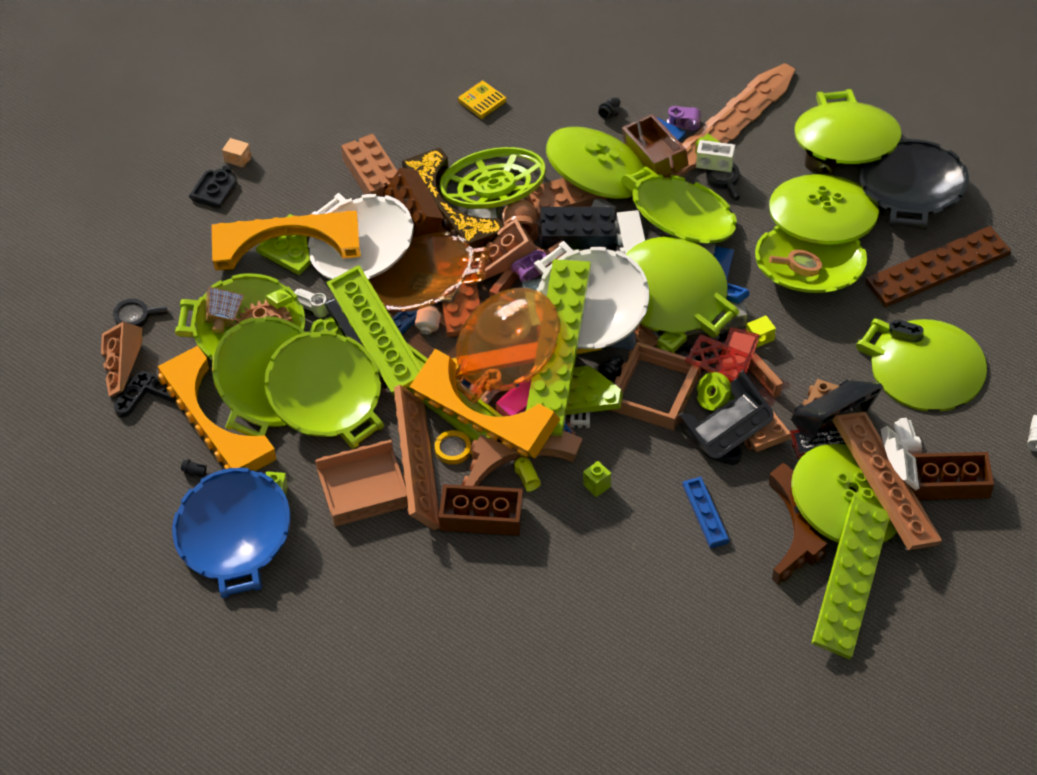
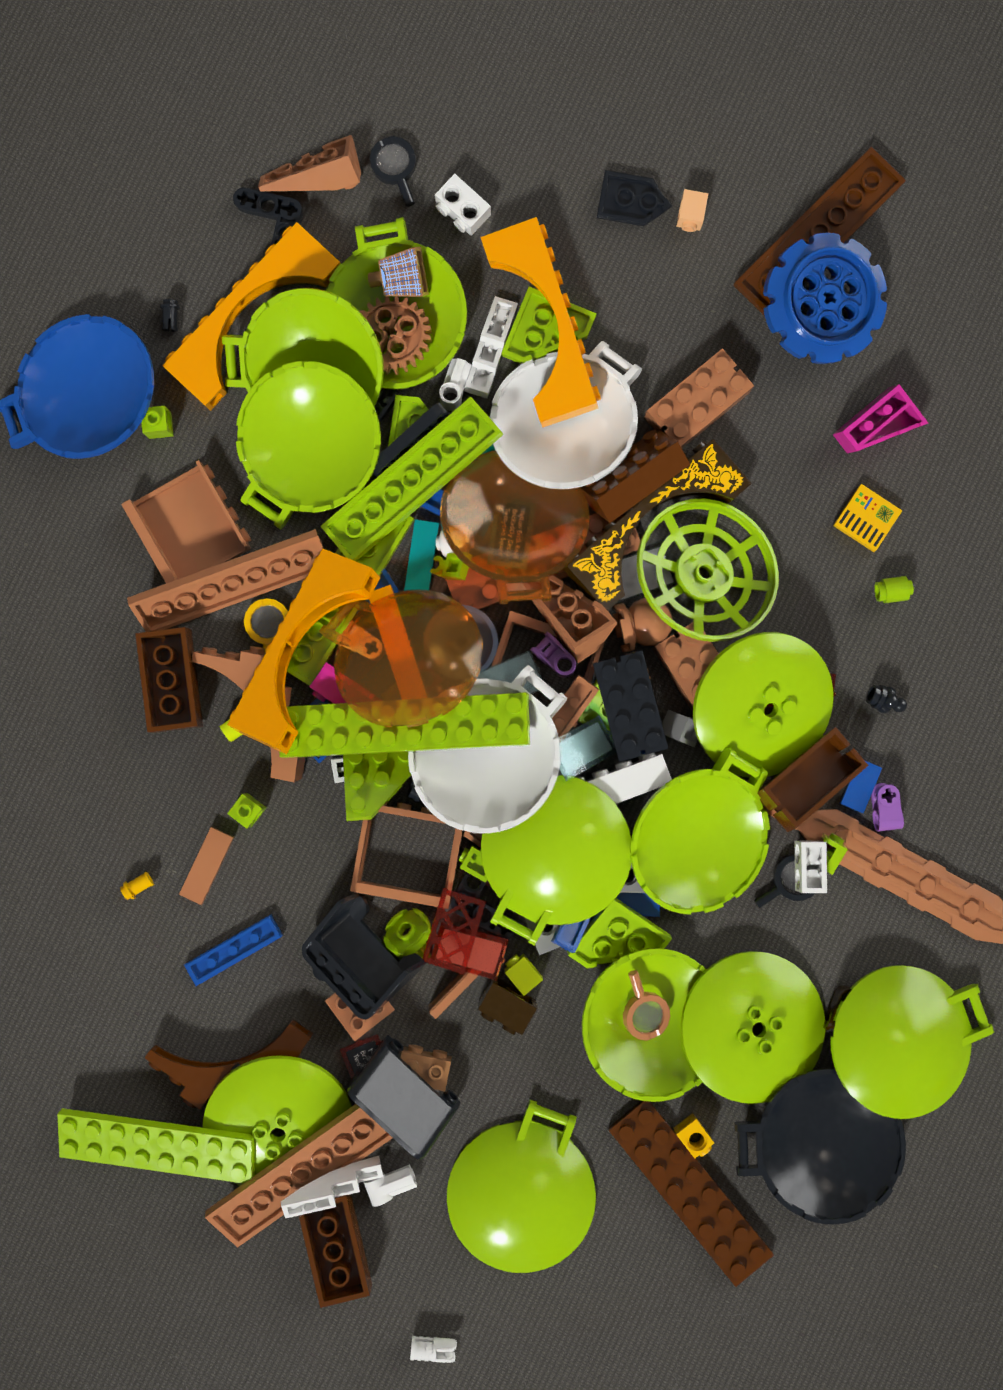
camera: 75 degrees right, 35 degrees up
(181, 276) = (467, 201): none -> white brick
(279, 92) = (837, 211): none -> reddish brown plate
(279, 298) = (429, 343): lime tile -> none
(290, 277) = (490, 347): none -> white slope
(326, 88) = (847, 264): none -> blue piece
(417, 78) = (881, 419): none -> dark pink wedge
(427, 343) = (421, 555): none -> teal tile
(446, 317) = (450, 568): none -> lime plate
(535, 92) = (893, 589): none -> lime brick
(634, 518) = (206, 865): none -> nougat tile
(641, 569) = (136, 886): none -> yellow pin
(744, 272) = (617, 933): none -> lime plate
(780, 338) = (507, 1006): none -> dark brown brick
(896, 253) = (686, 1129): none -> yellow brick
(906, 331) = (557, 1169): beam -> none

